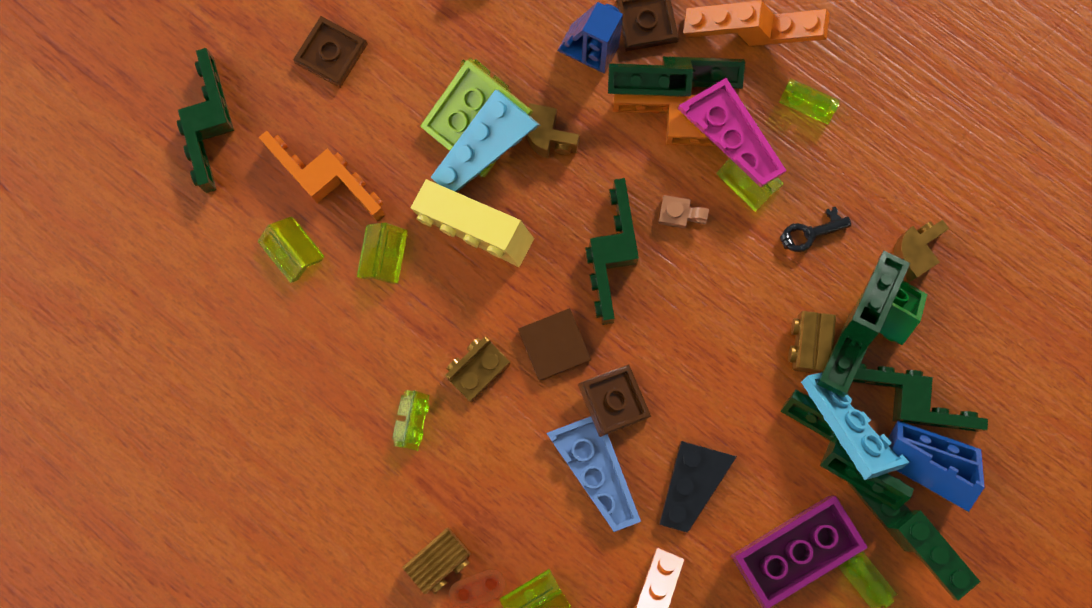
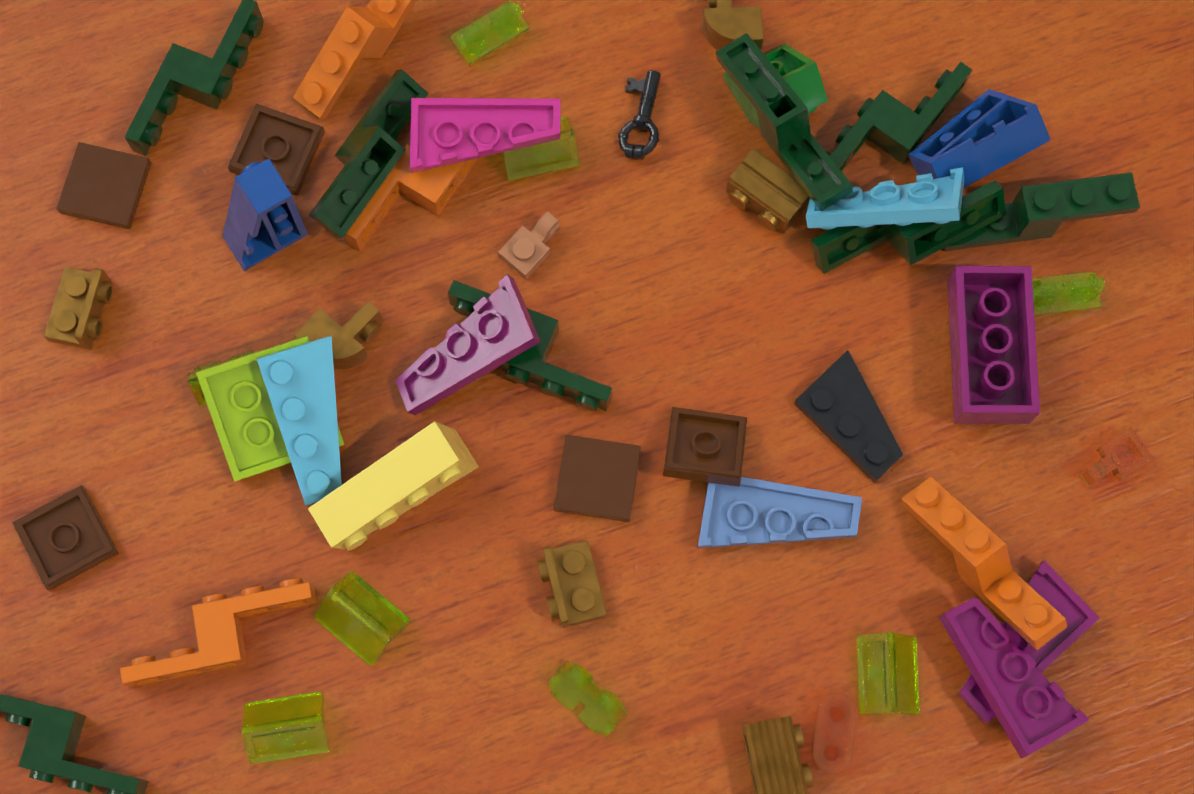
camera: 65 degrees left, 5 degrees down
(586, 216) = (482, 342): none -> wing

